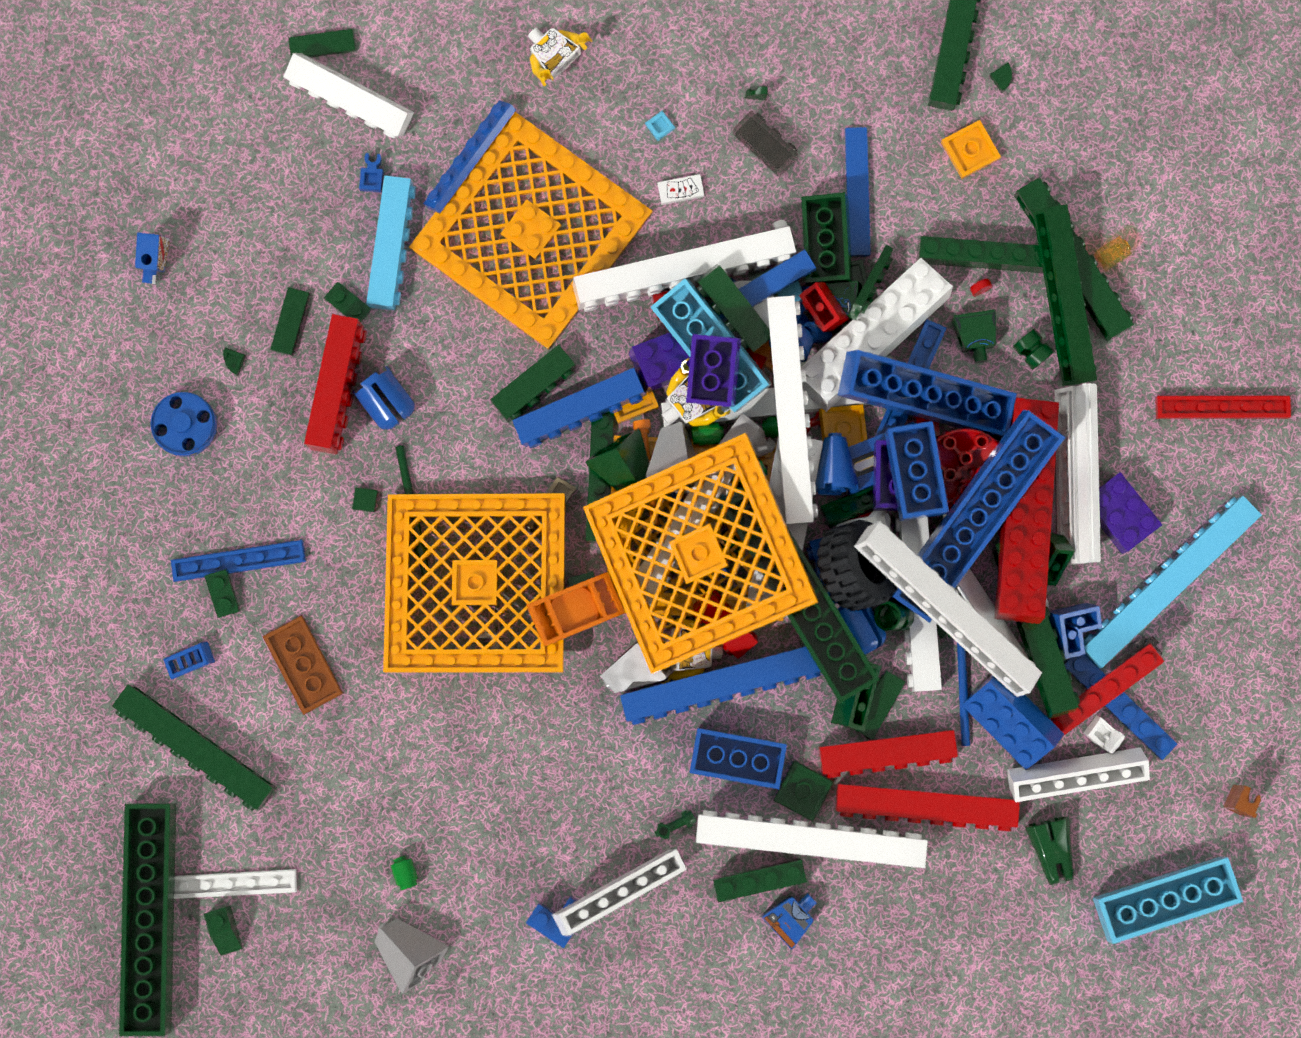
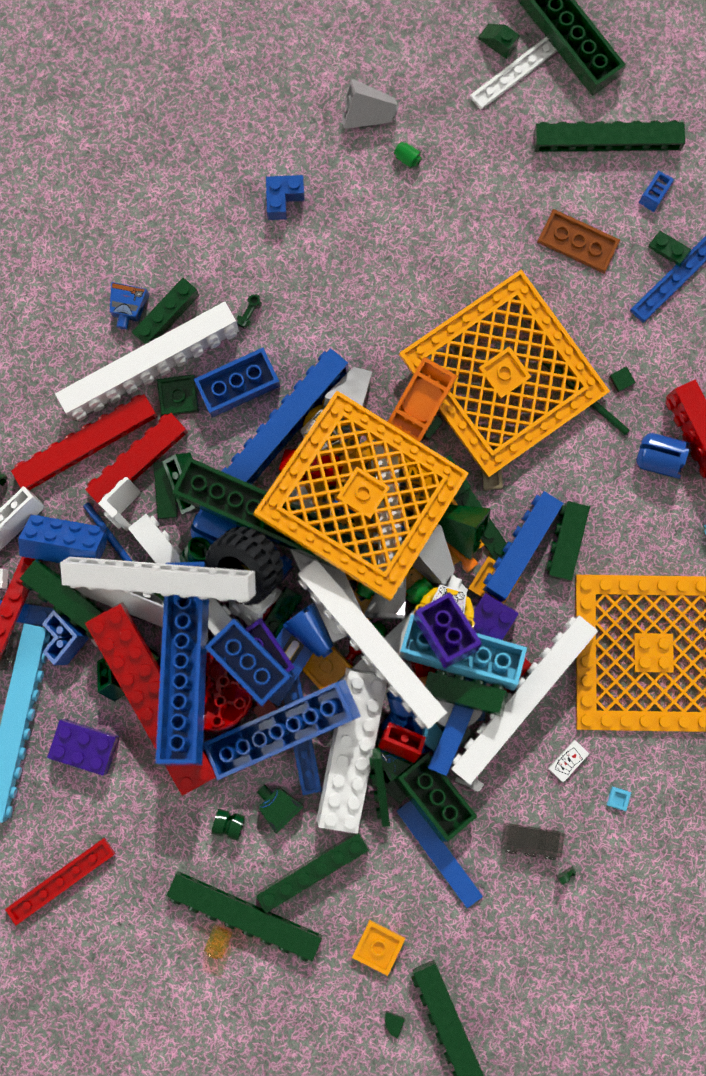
camera: 140 degrees right, 0 degrees up
(619, 892) = (254, 235): white brick -> none
(936, 723) = (118, 500): none -> white bracket
(981, 287) = (298, 844): red tile -> none
(1065, 295) = (232, 881): dark green brick -> none
(1078, 472) = (134, 754): white plate -> none

